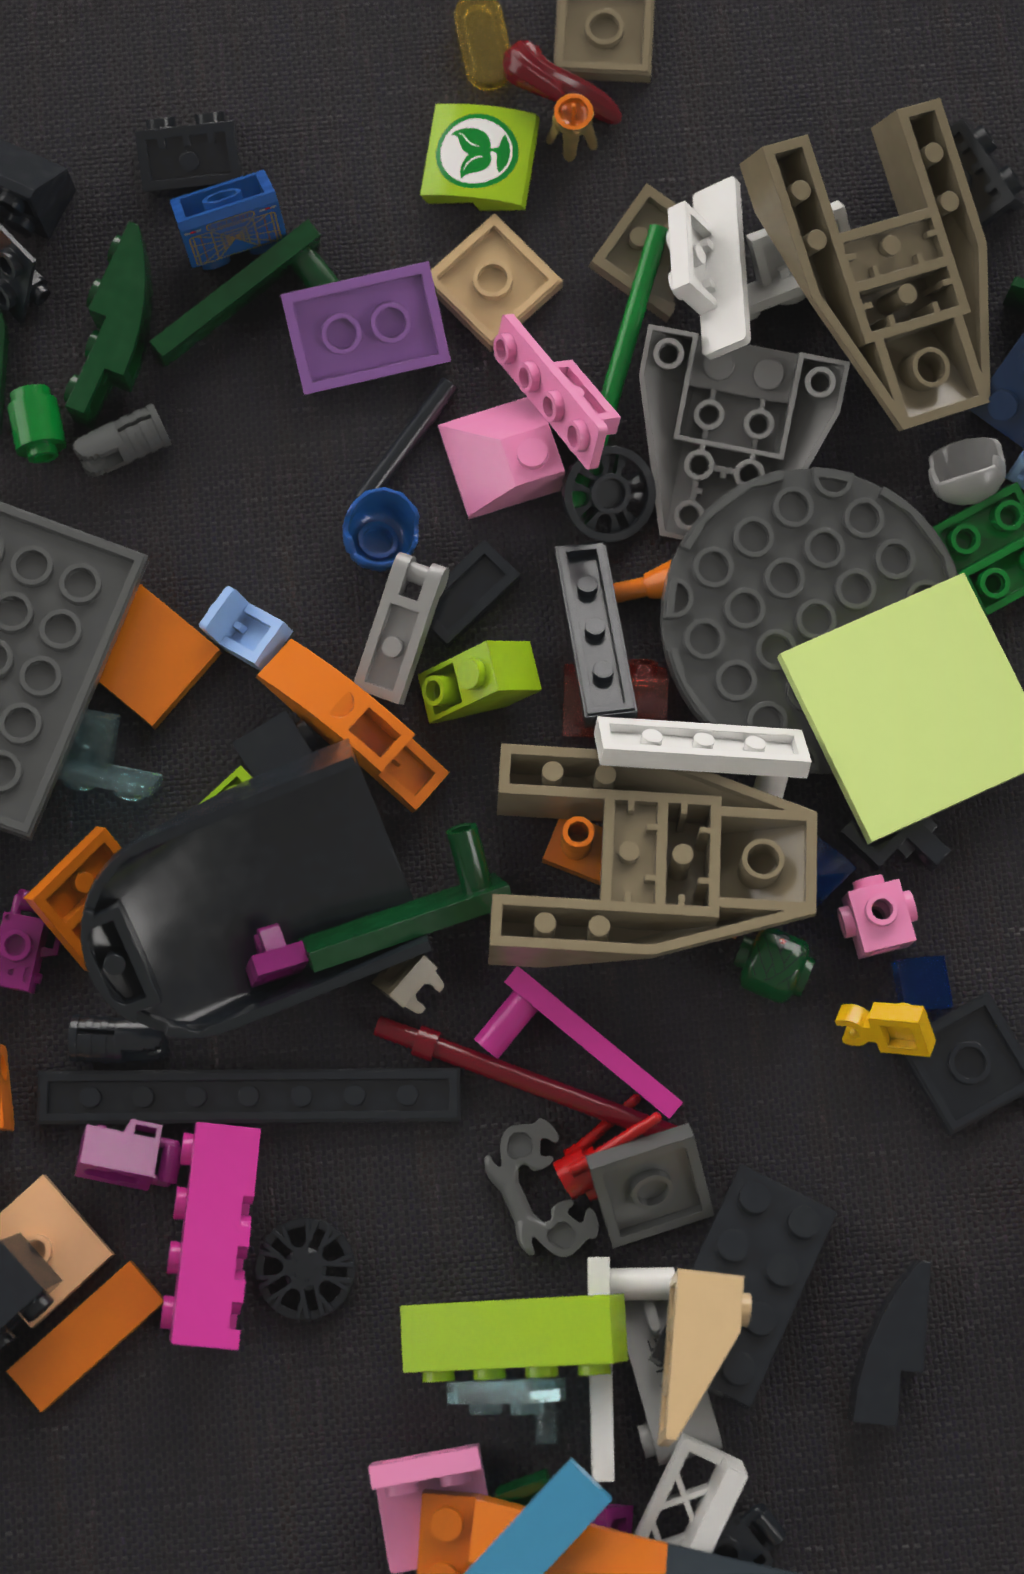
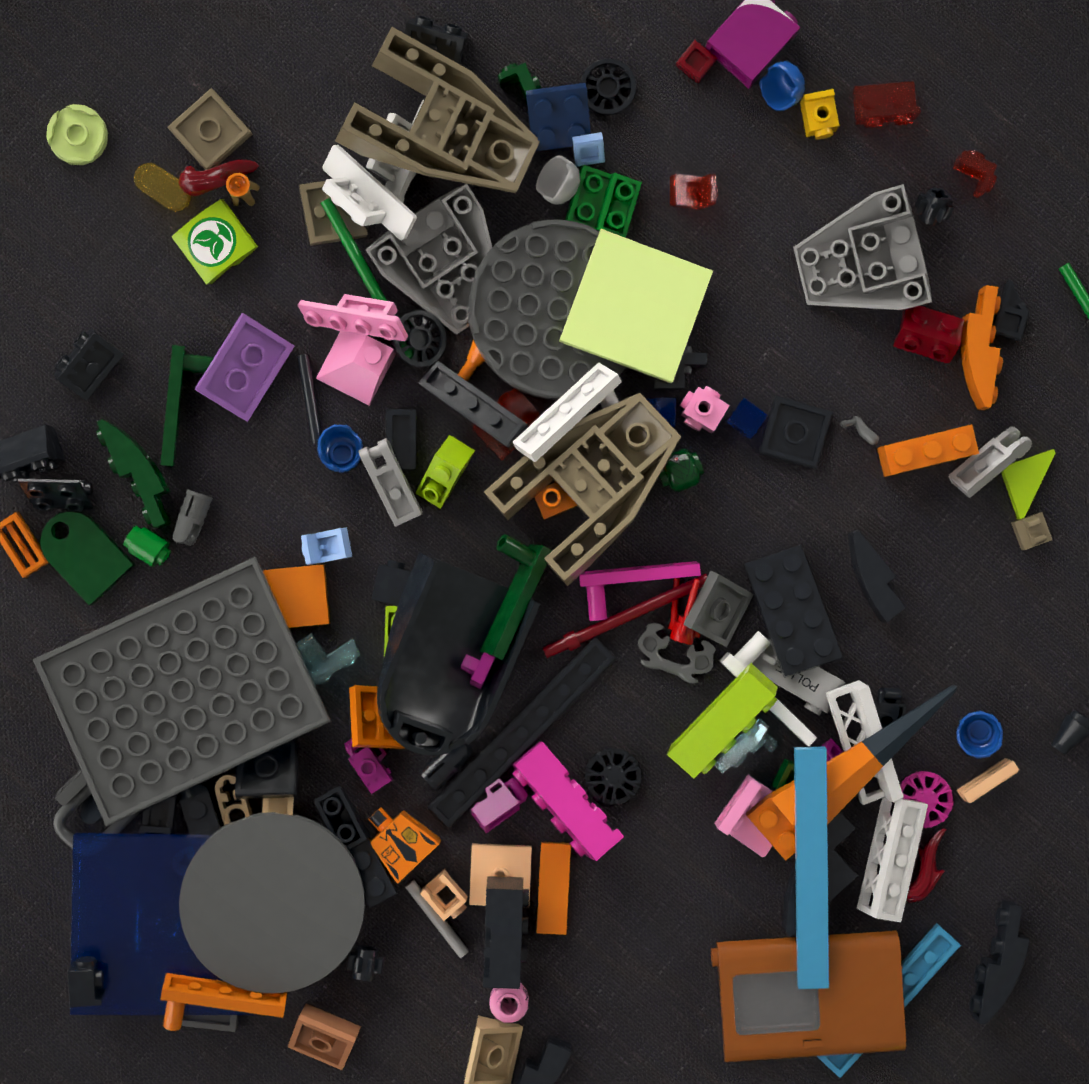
camera: 55 degrees left, 10 degrees up
(229, 220) = (137, 377): blue slope -> none
(344, 711) = (410, 540): orange slope -> none
(406, 979) = (540, 625): dark tan tile -> none
(493, 277) = (275, 291): tan tile -> none
(700, 1331) = (798, 651): tan slope -> none
(894, 1028) = (753, 449): yellow plate -> none

